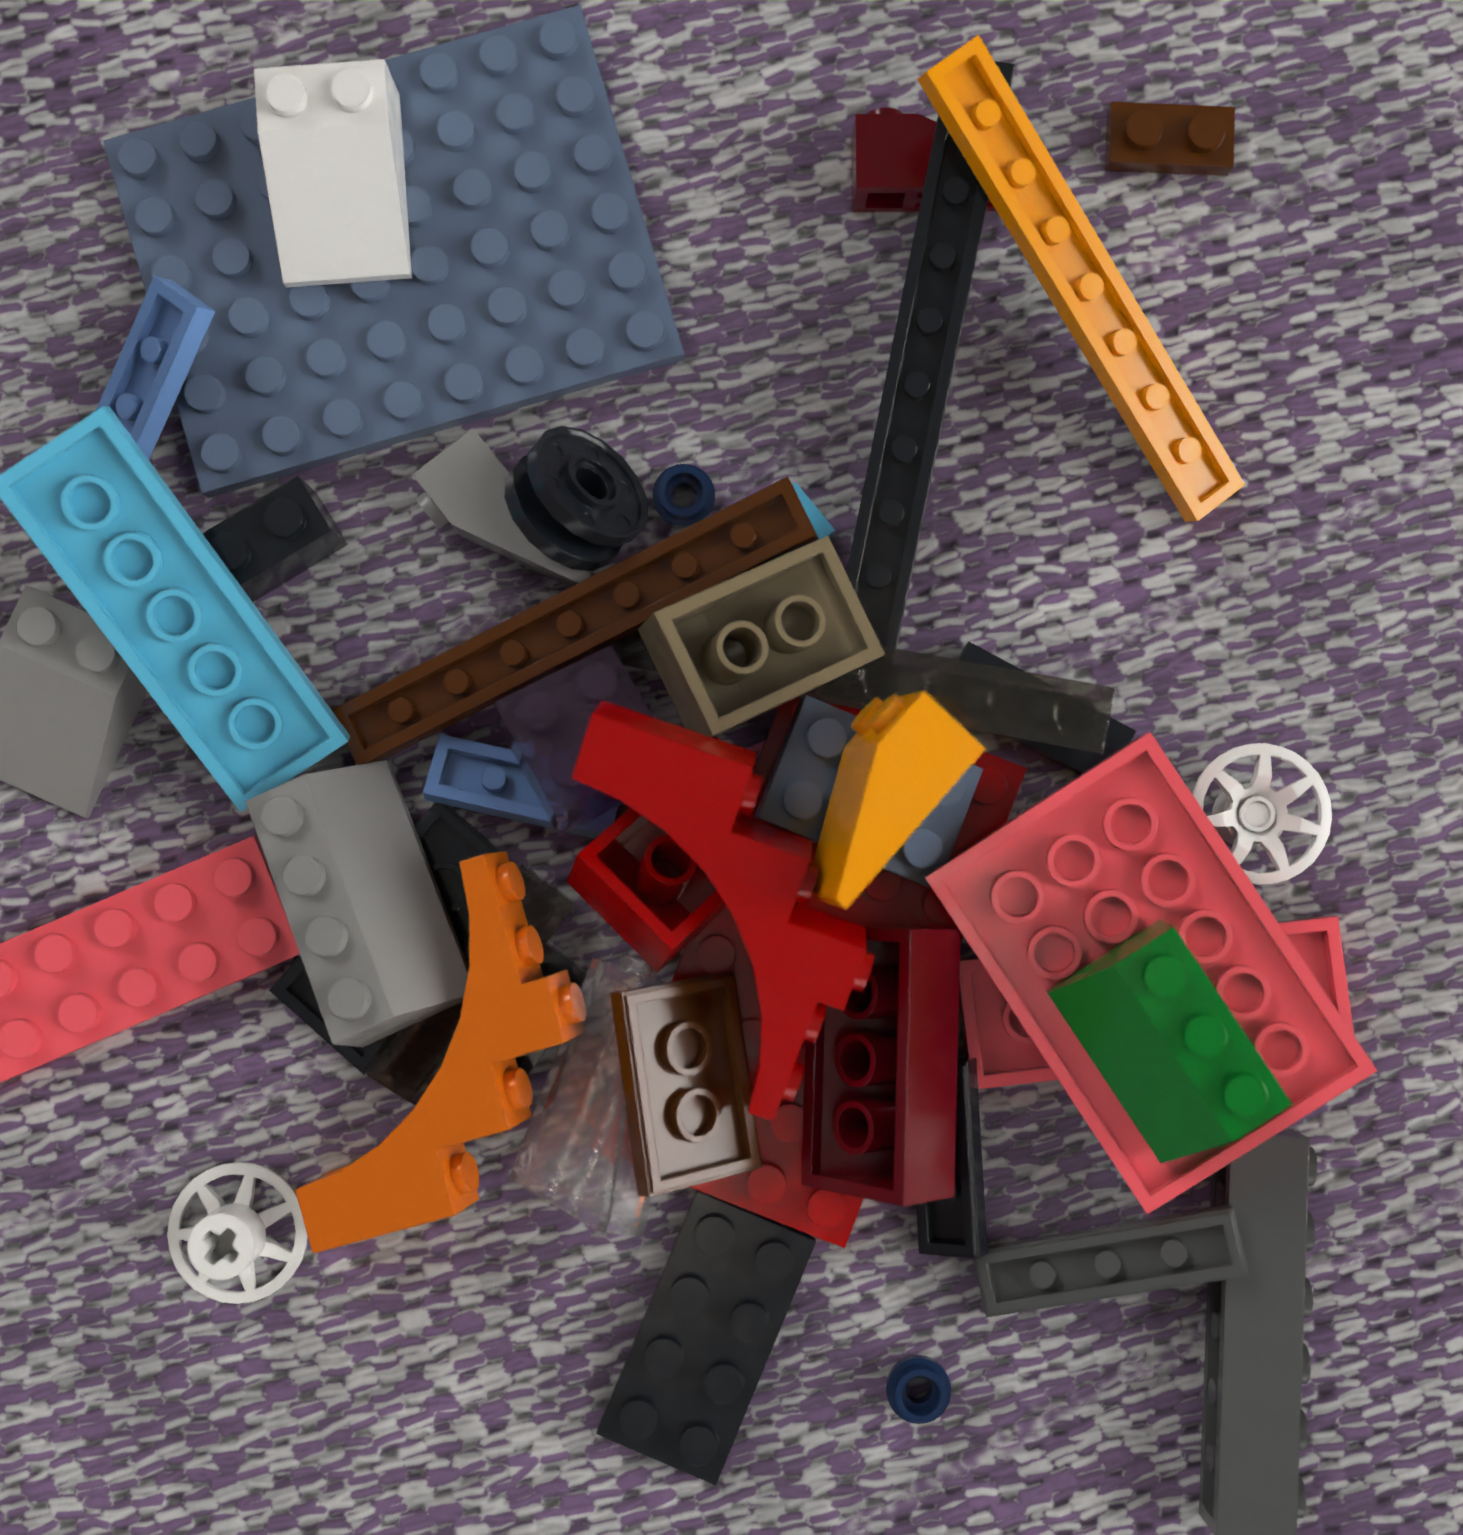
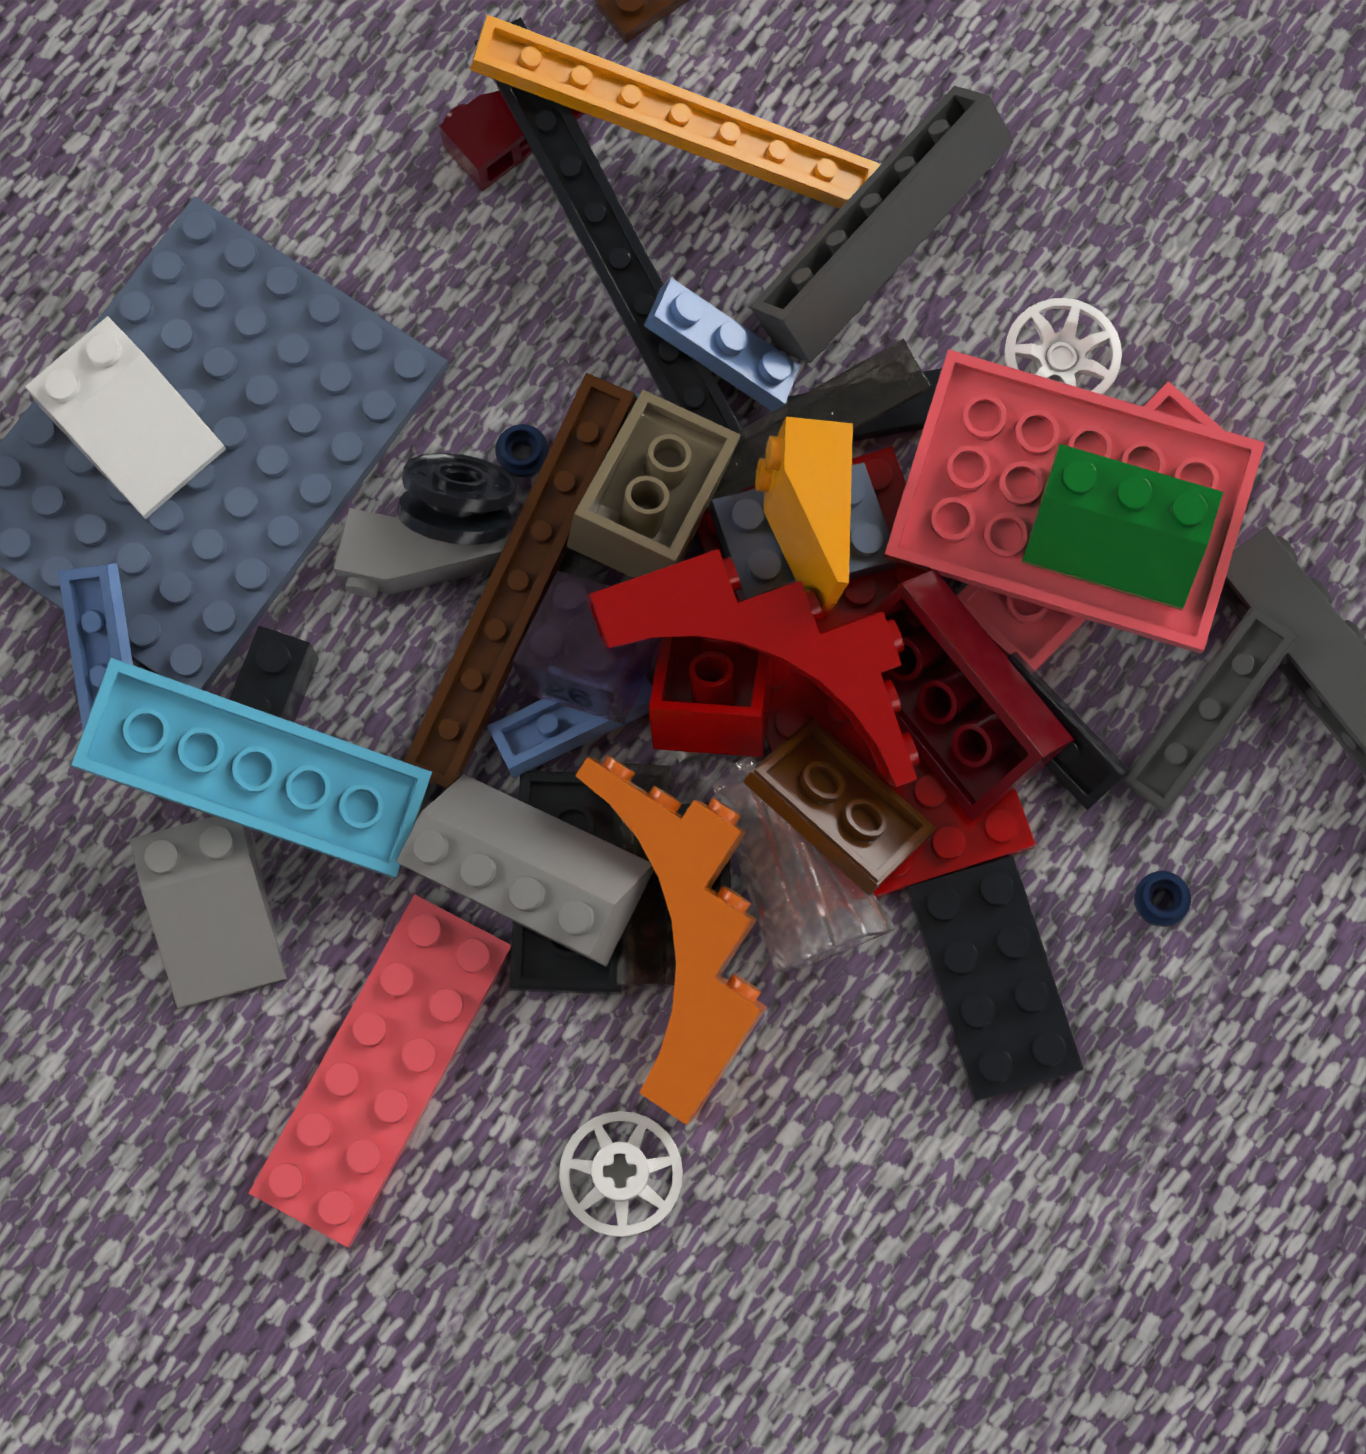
camera: 35 degrees left, 10 degrees down
(944, 546) = (722, 345): none -> medium blue plate
(1199, 546) = (882, 223): none -> dark grey brick

